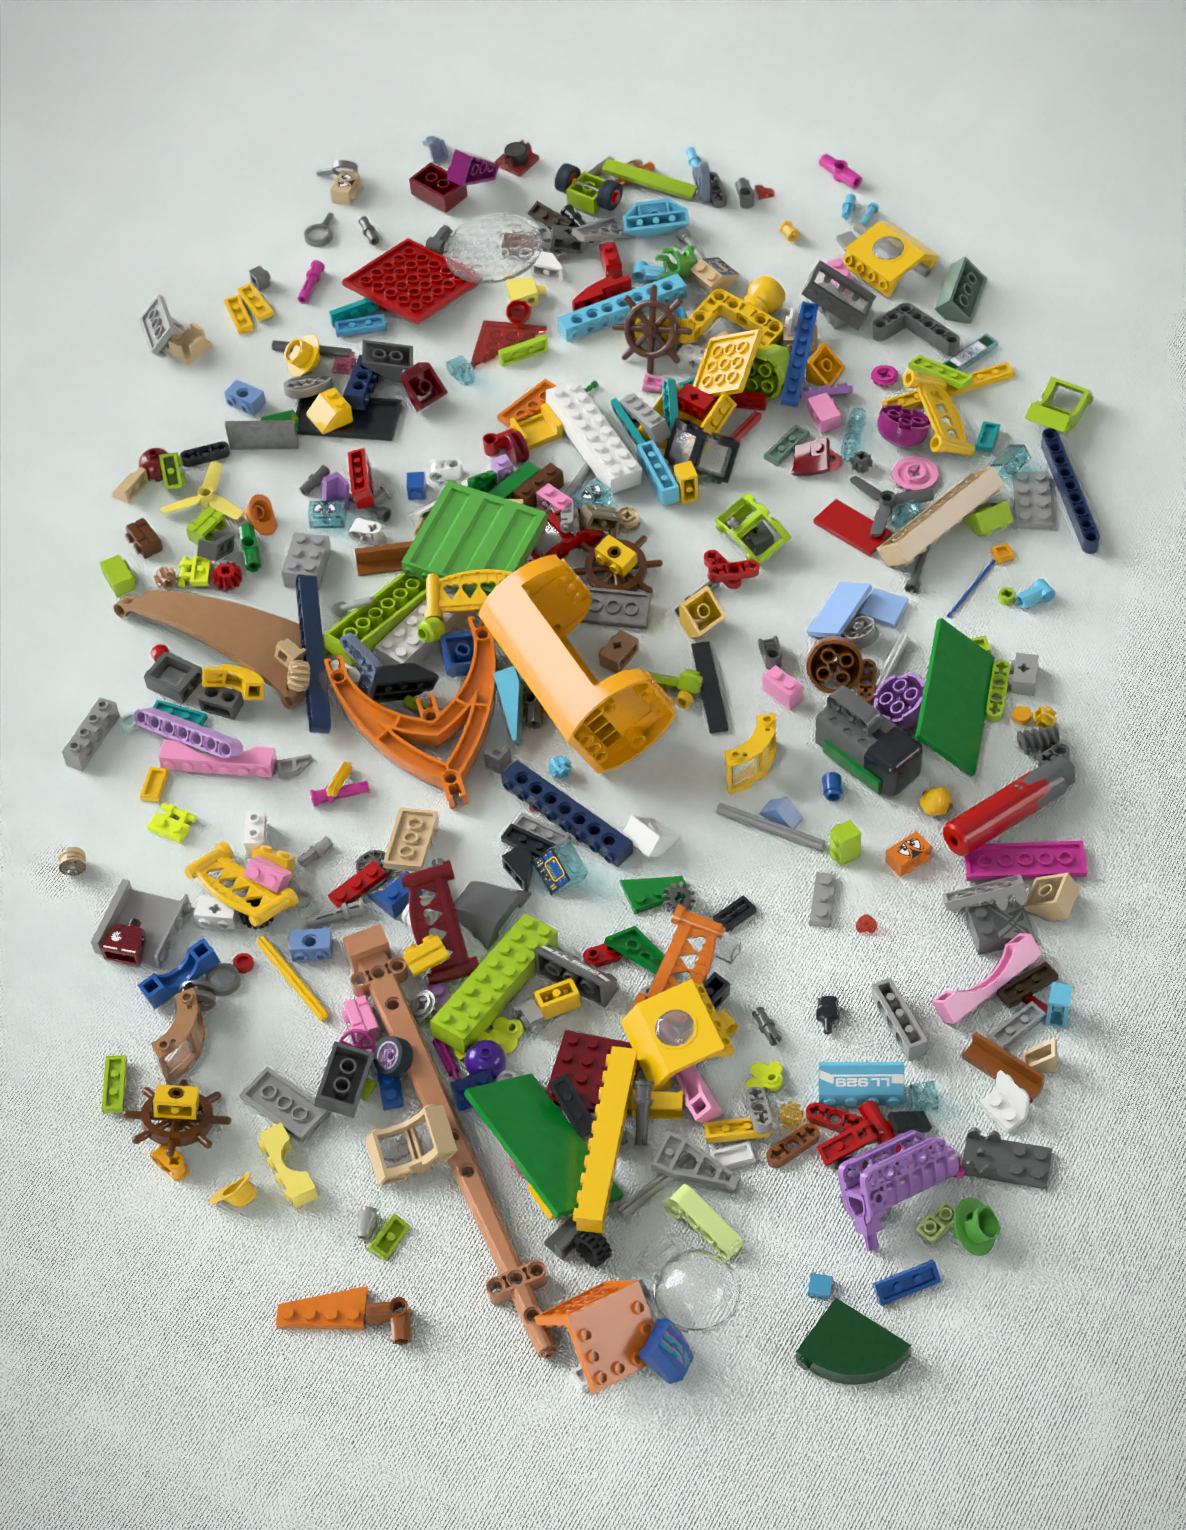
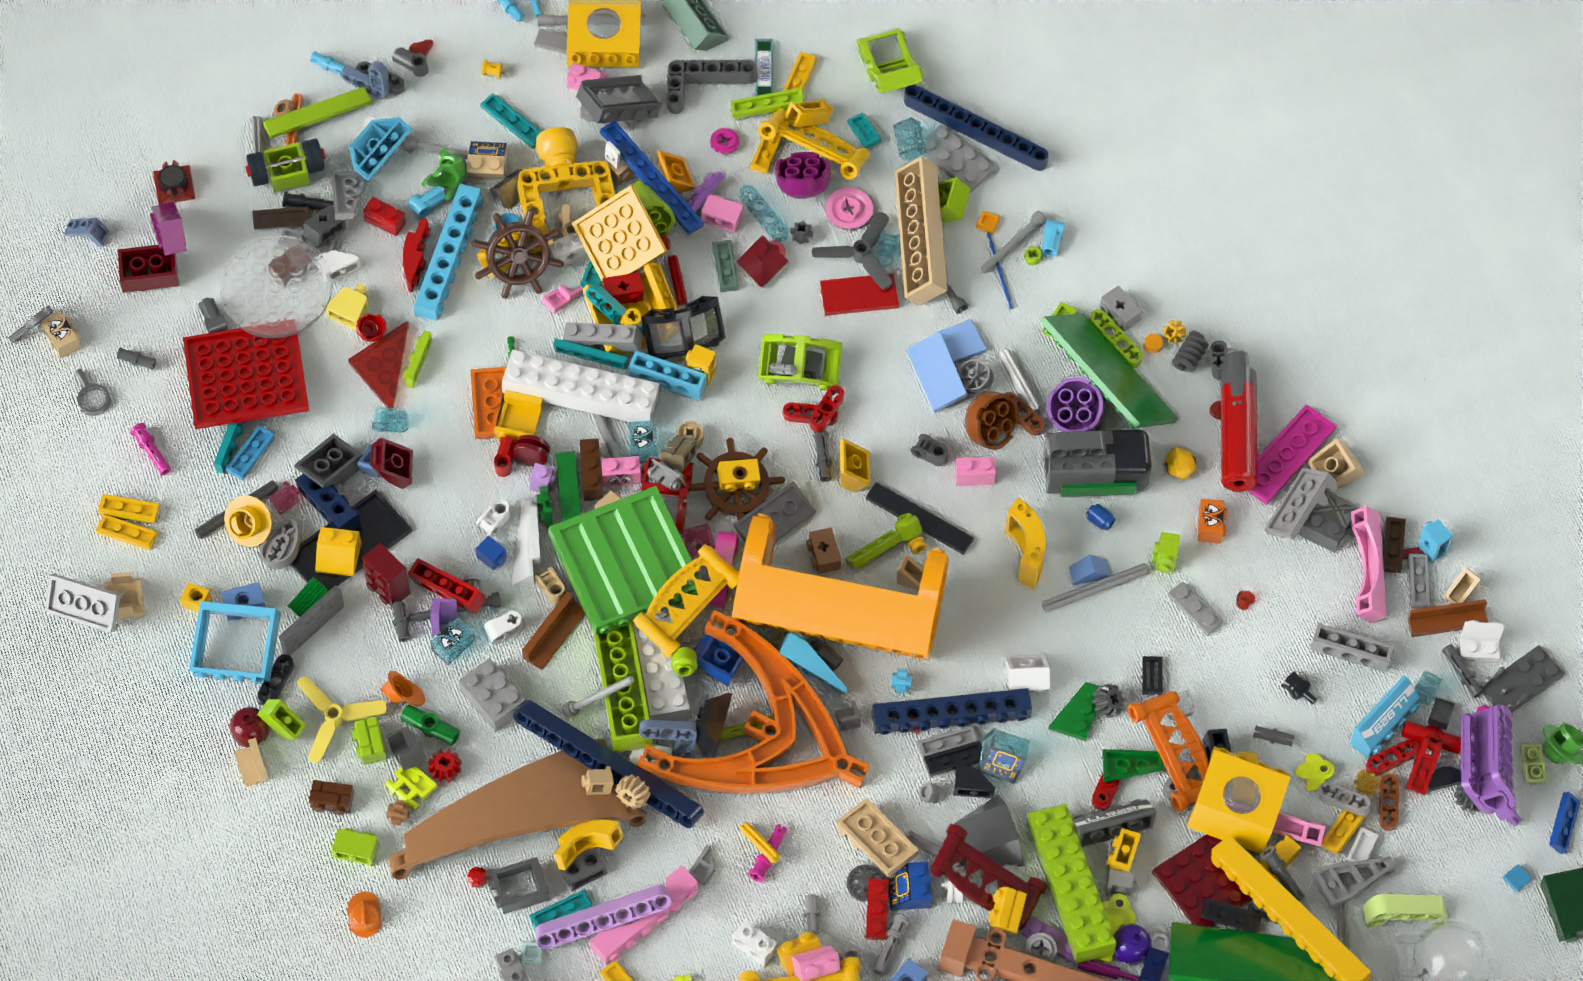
camera: 55 degrees left, 10 degrees up
(73, 617) = (364, 914): none -> orange piece
(194, 393) = (208, 608): none -> medium azure window
(222, 374) = (191, 592): none -> yellow brick
(260, 278) = (102, 483): flat silver plate -> none
(332, 440) = (385, 575): none -> dark red brick
(484, 848) = (929, 793): none -> light grey tile
(669, 409) = (634, 315): none -> yellow gear
(764, 261) = (511, 119): none -> teal tile
(959, 395) = (809, 113): none -> yellow window
(965, 1118) = (1466, 676): none -> dark grey pin
(1040, 574) = (1037, 220): none -> light grey piece

